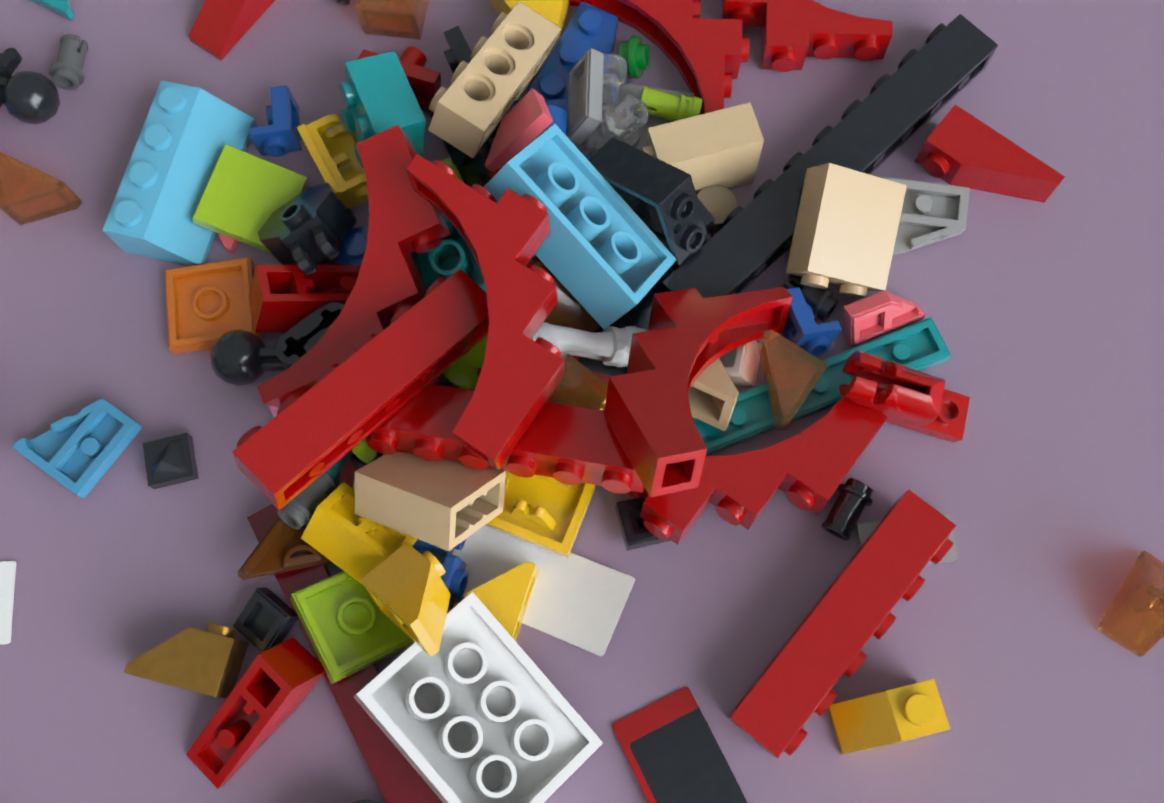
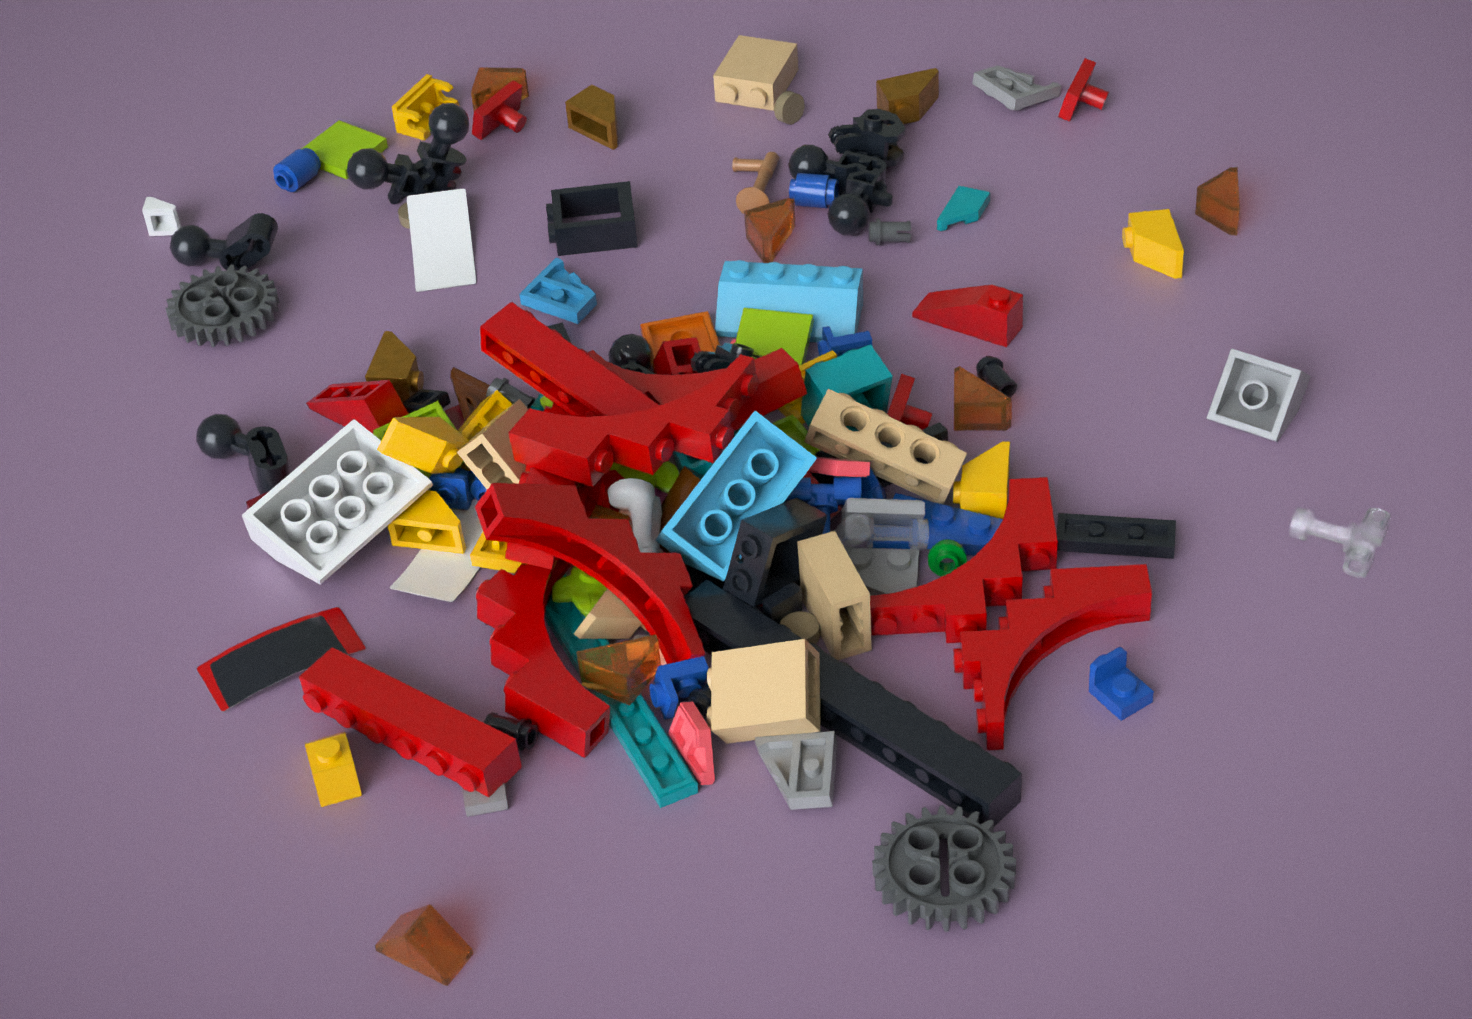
camera: 85 degrees right, 30 degrees down
(670, 106) = (887, 571): lime pin -> none
(906, 396) = (607, 750): red plate -> none
(978, 157) = (874, 798): red slope -> none
(1059, 89) = (978, 868): none -> dark grey gear

